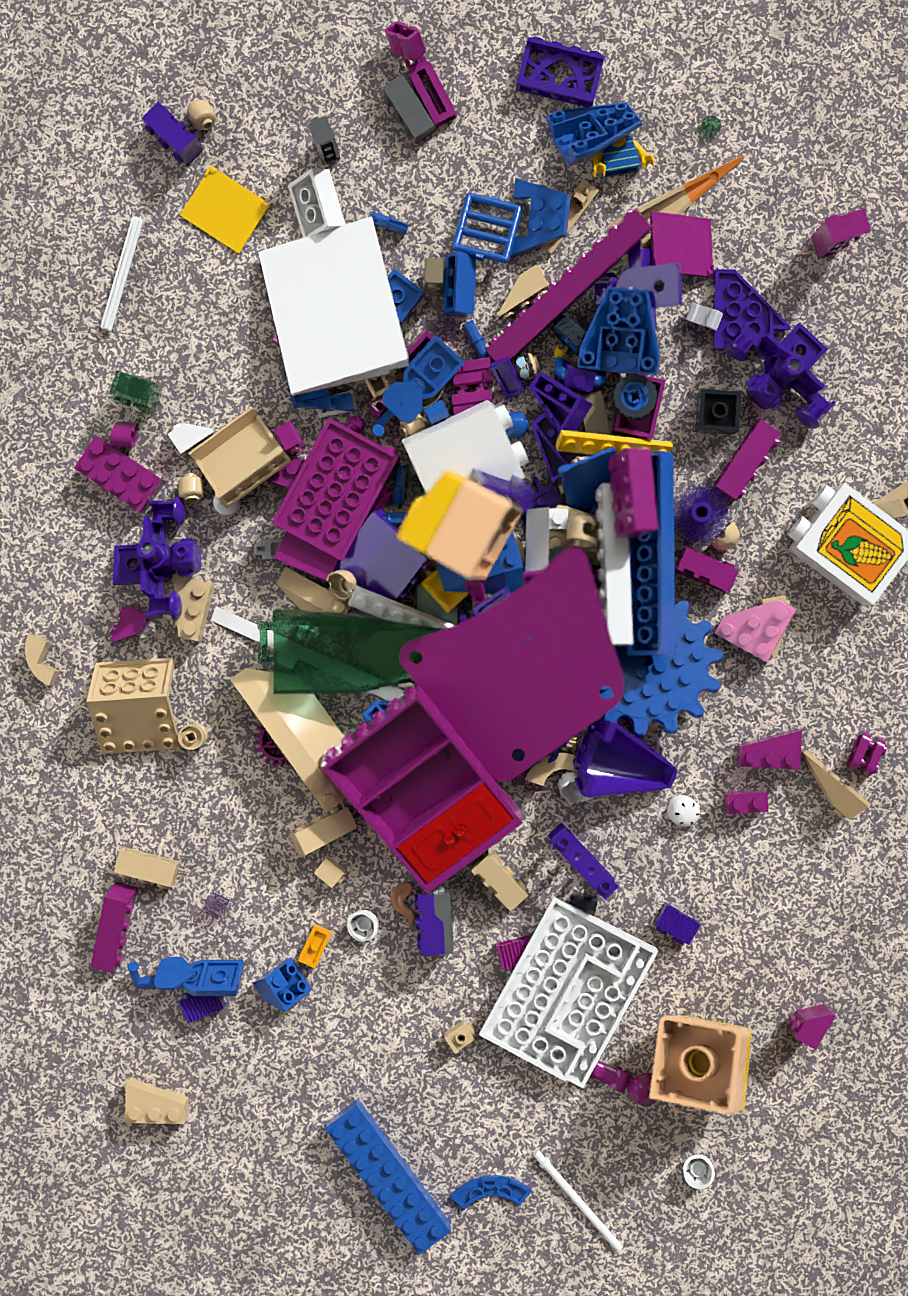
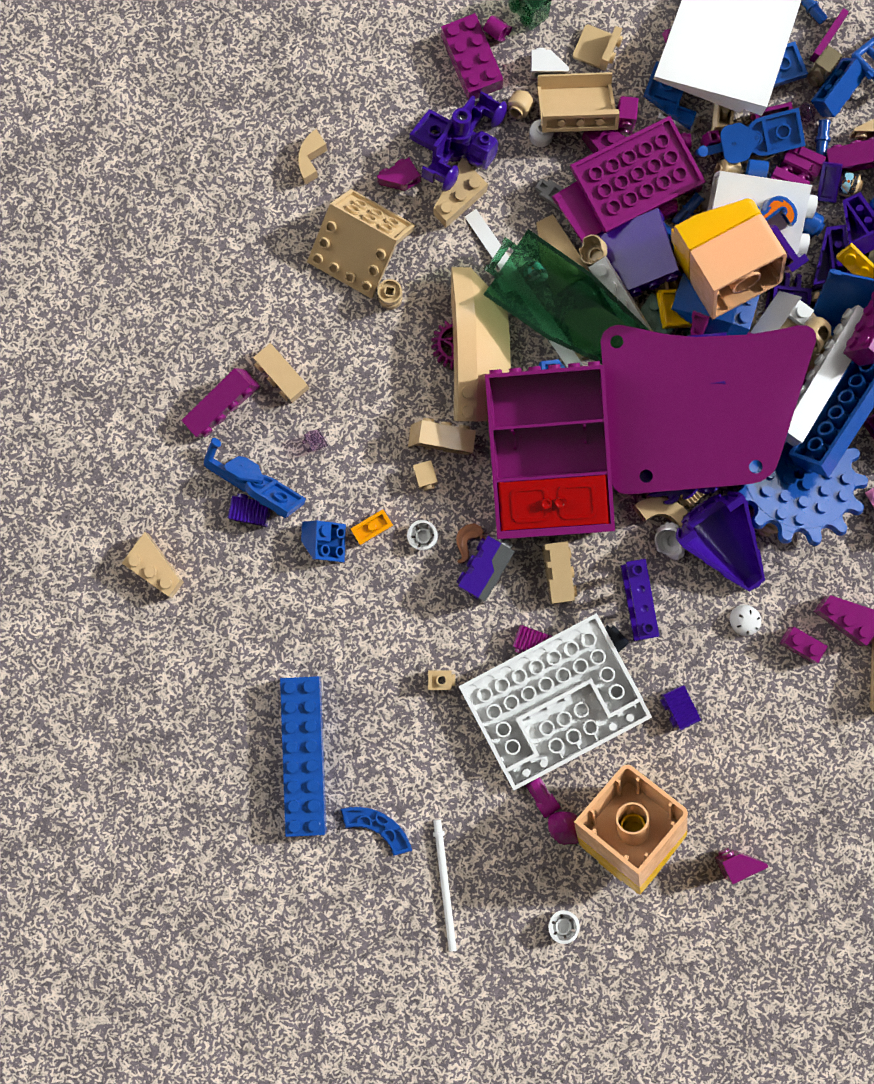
camera: 35 degrees right, 5 degrees down
(223, 388) = (597, 46): none -> tan bracket
(420, 221) = (829, 35): none -> magenta tile
(471, 450) = (780, 205): none -> blue animal

